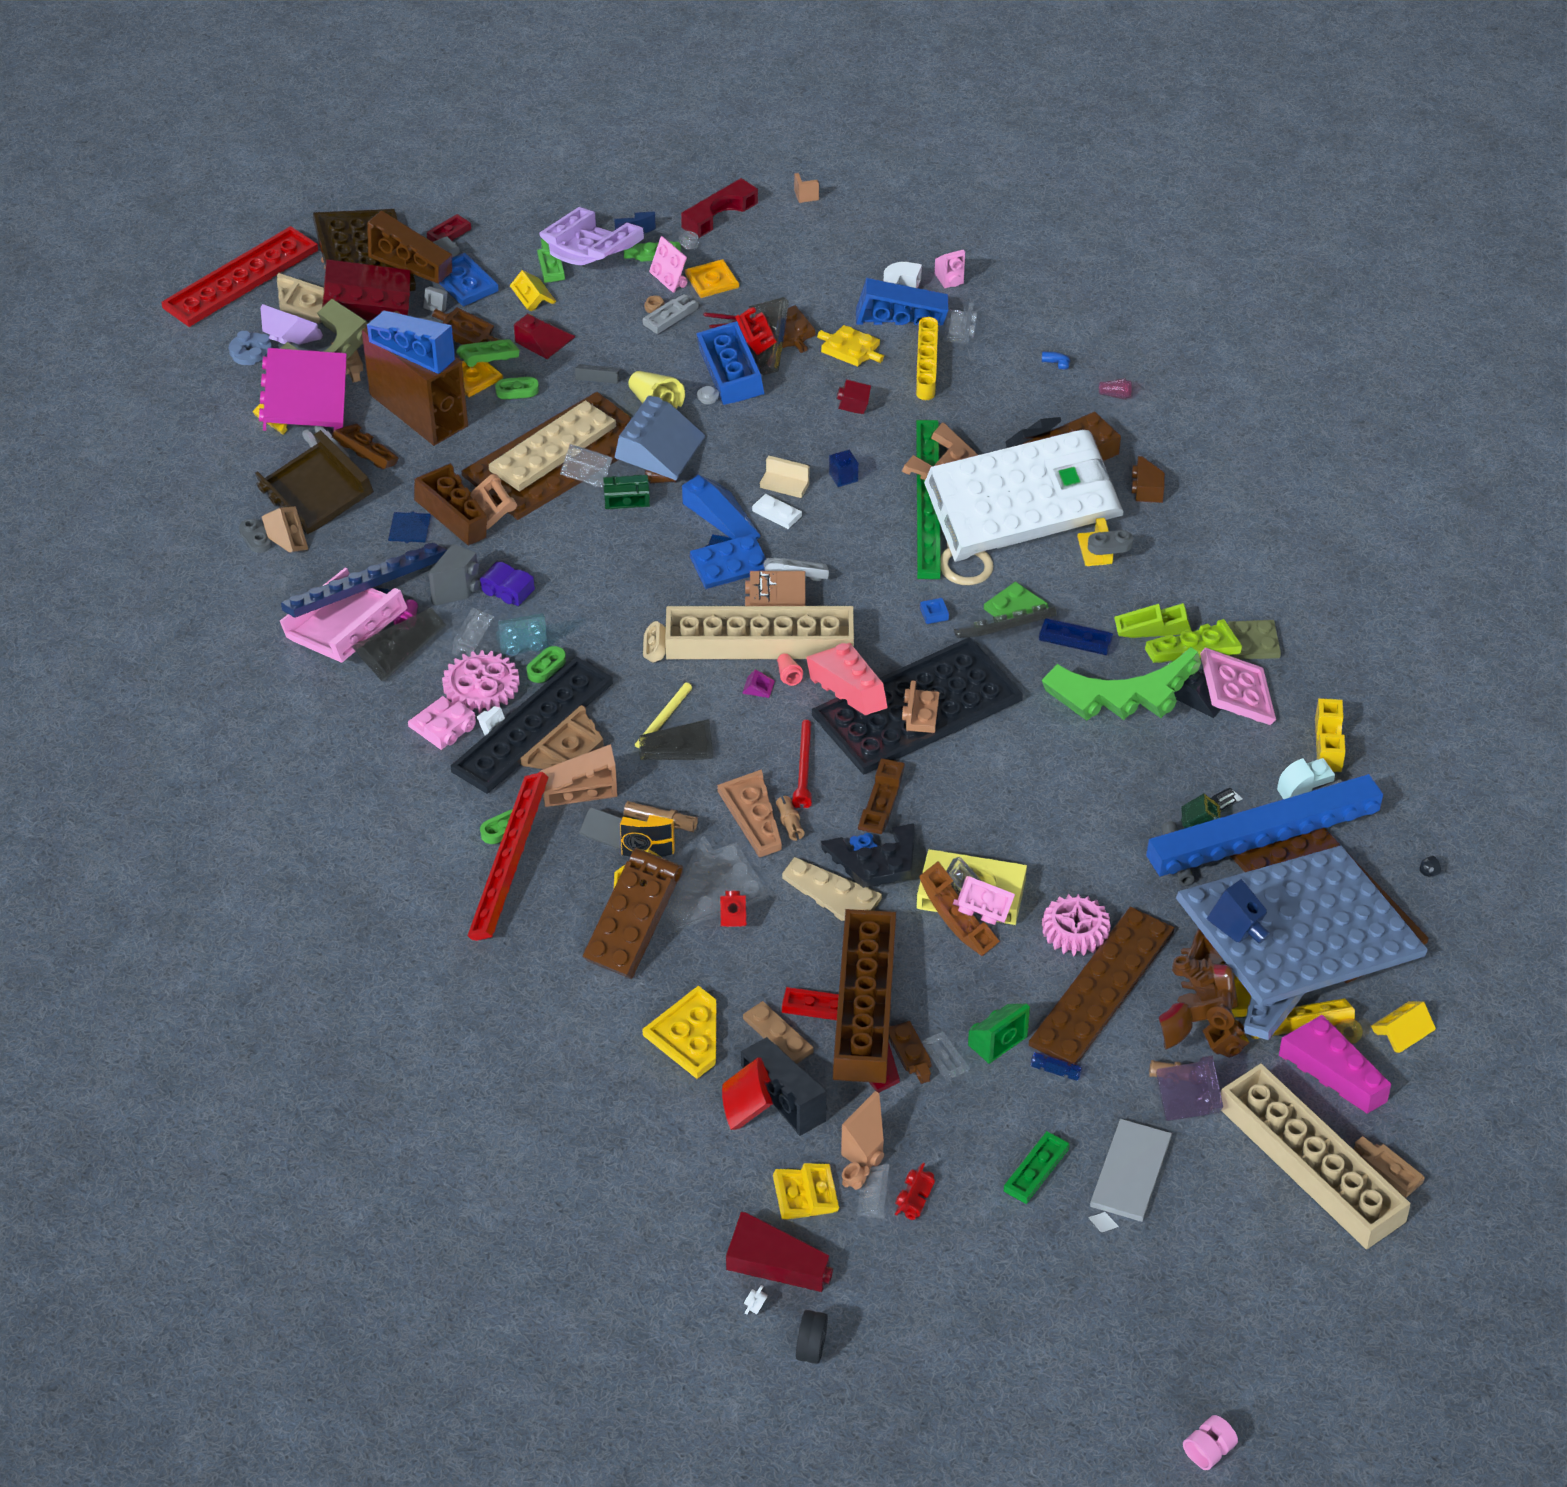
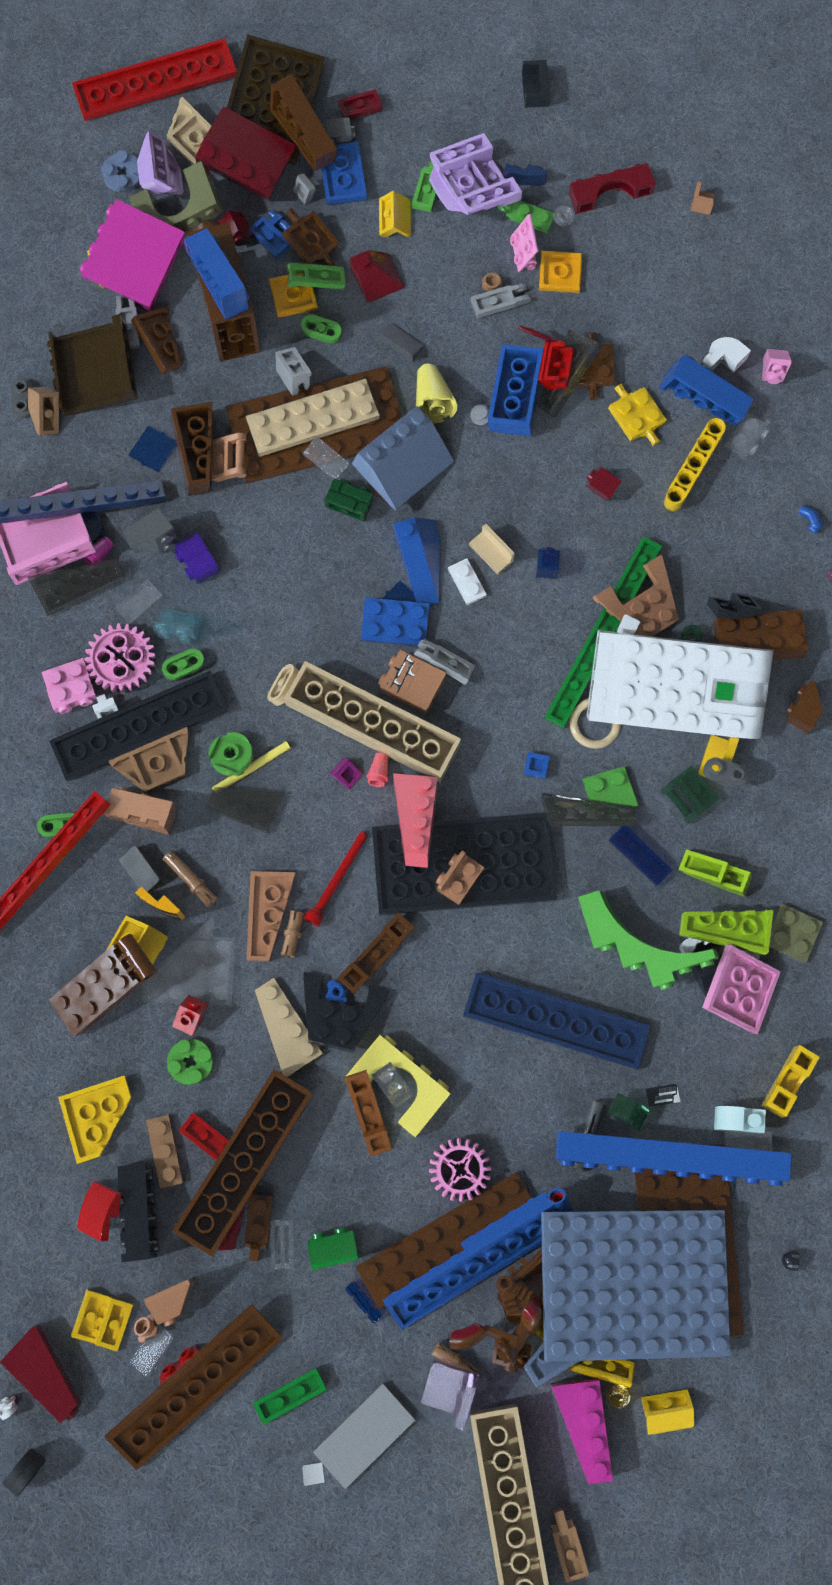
camera: 25 degrees right, 30 degrees up
(511, 420) = (292, 370): none -> light grey hinge
(601, 164) = (535, 83): none -> black panel
(648, 714) = (236, 764): none -> bright green plate
(763, 943) = (202, 1057): none -> bright green plate
(936, 1197) = (193, 1387): none -> reddish brown plate
(984, 900) = (389, 1121): bright pink bracket -> none
(1085, 782) = (556, 1021): none -> dark blue plate
(1089, 573) = (695, 790): none -> clear green plate
(1139, 981) = (482, 1256): none -> blue hinge
(1239, 914) = (572, 1278): dark blue torso -> none

